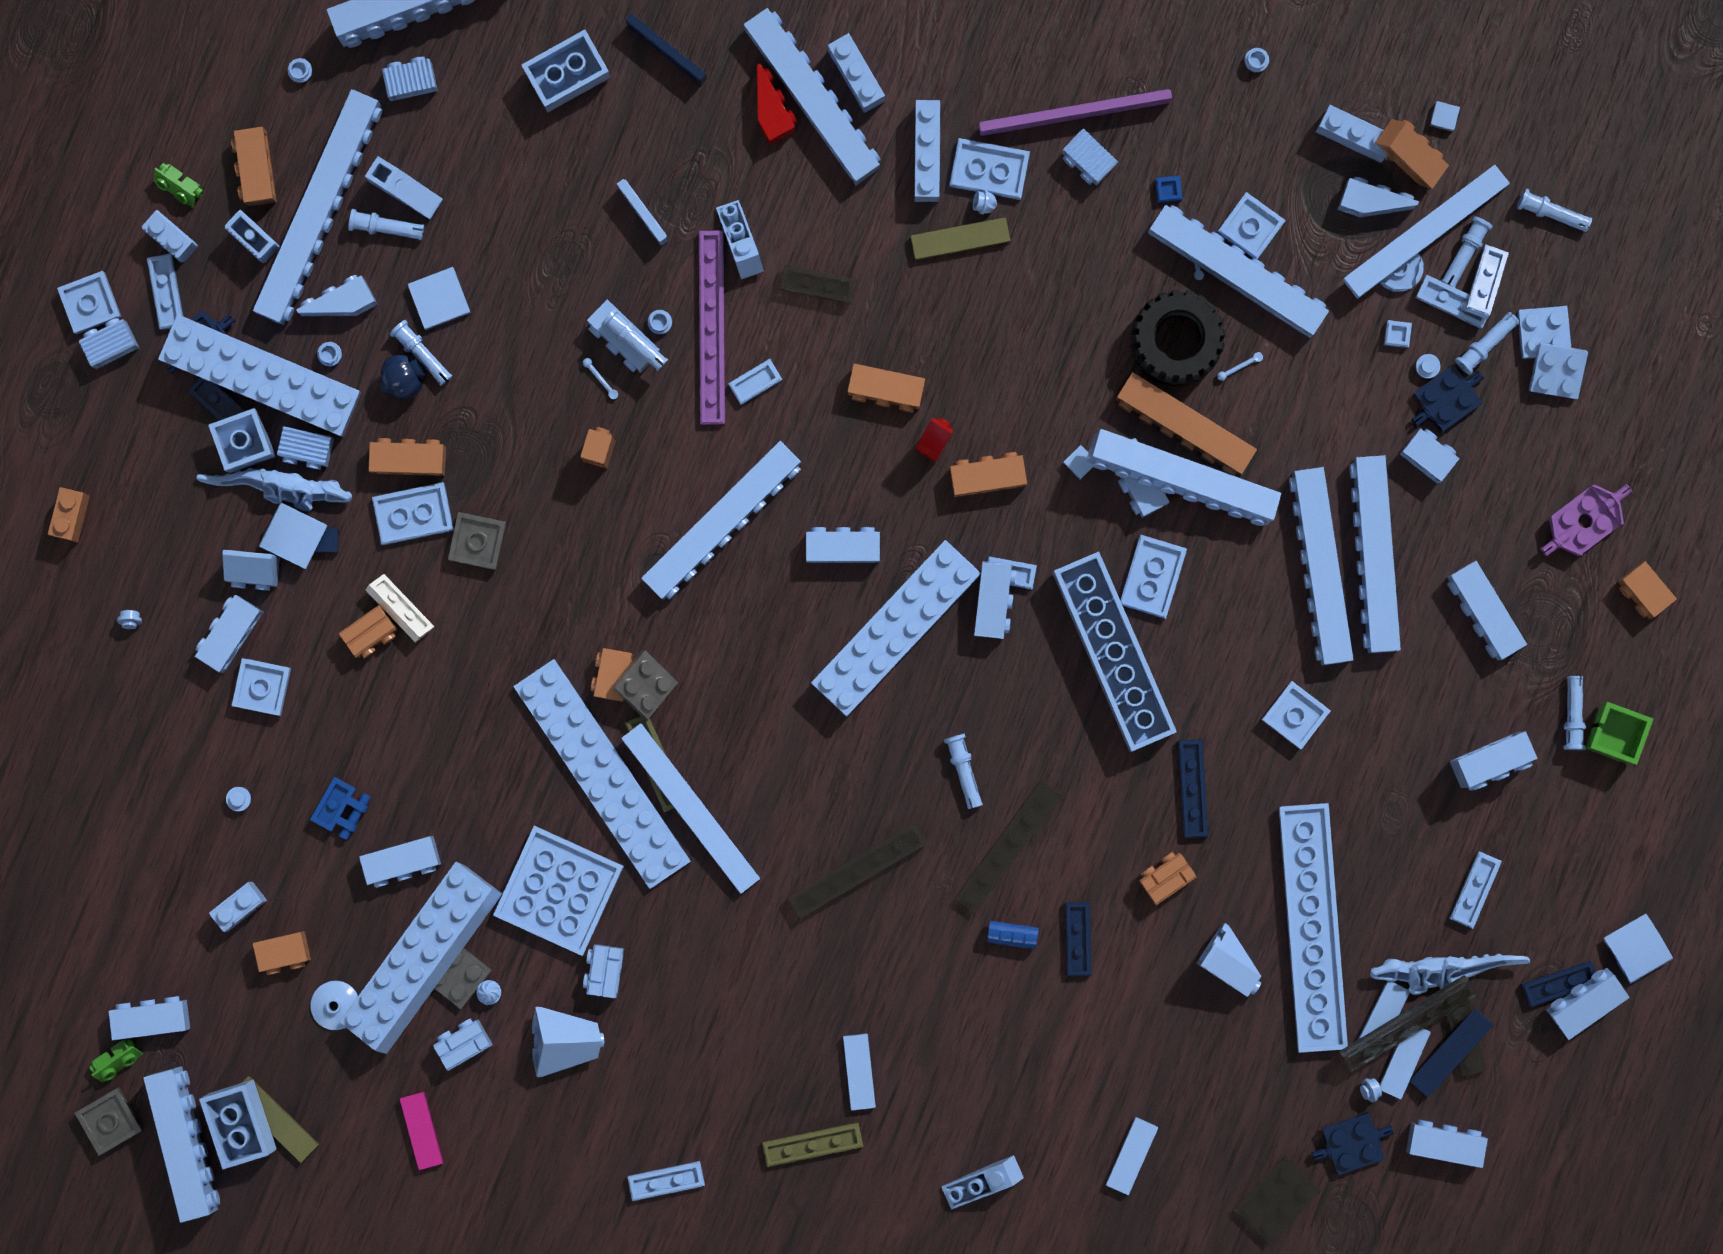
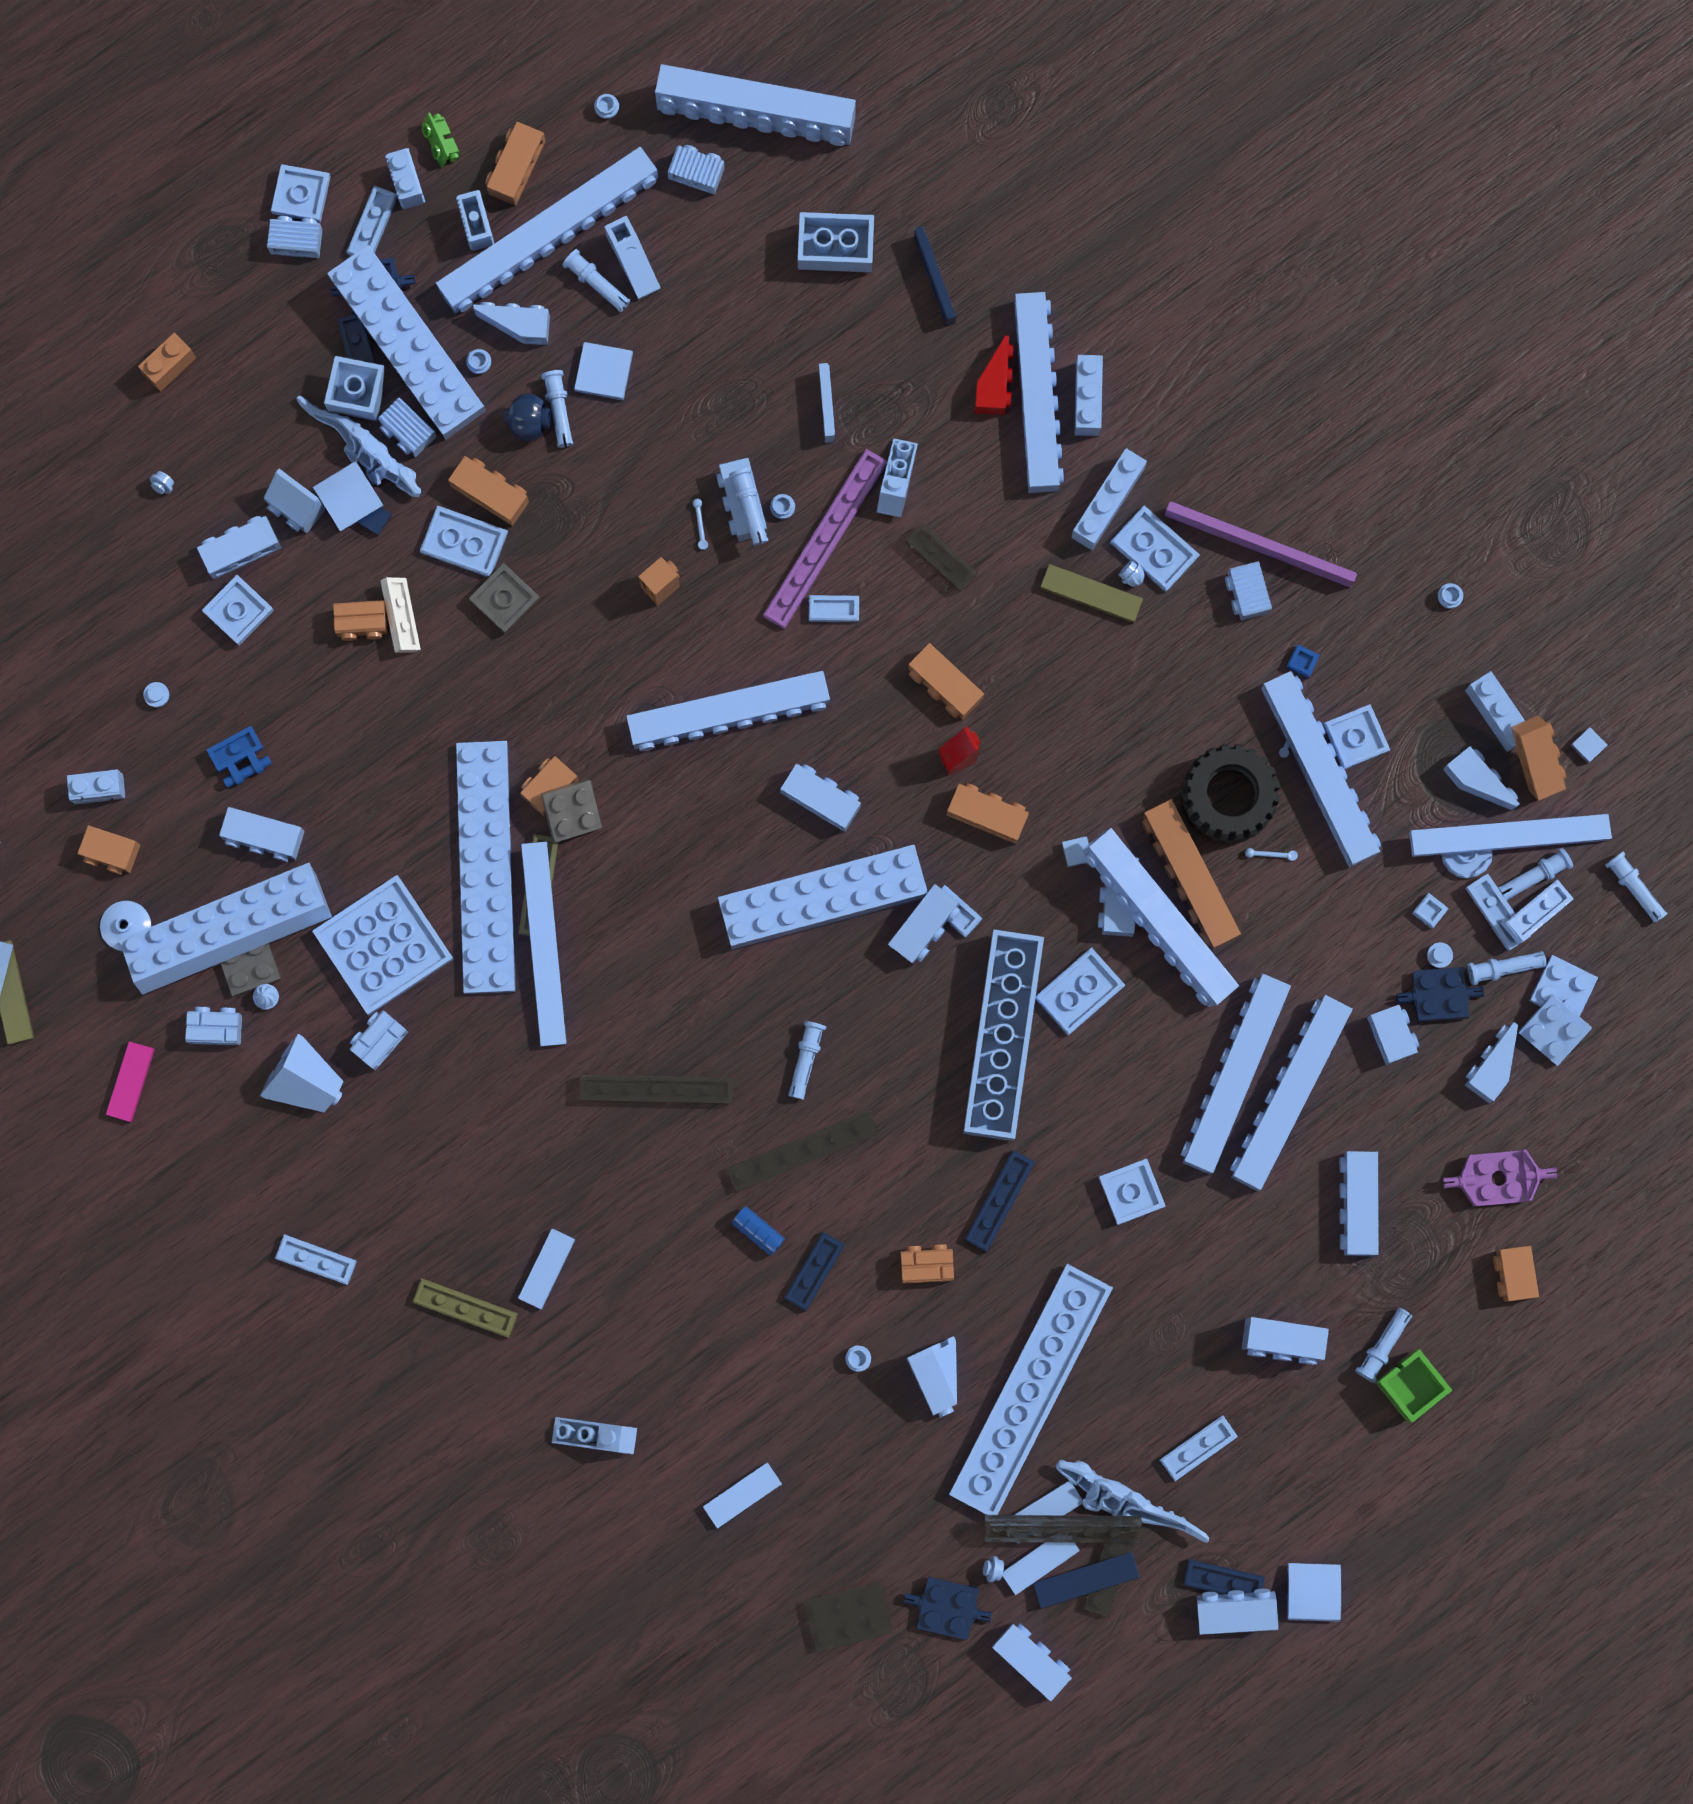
camera: 30 degrees right, 5 degrees down
(1157, 987) = (858, 1358): none -> light blue plate
(1529, 435) = (1494, 1071): none -> light blue slope

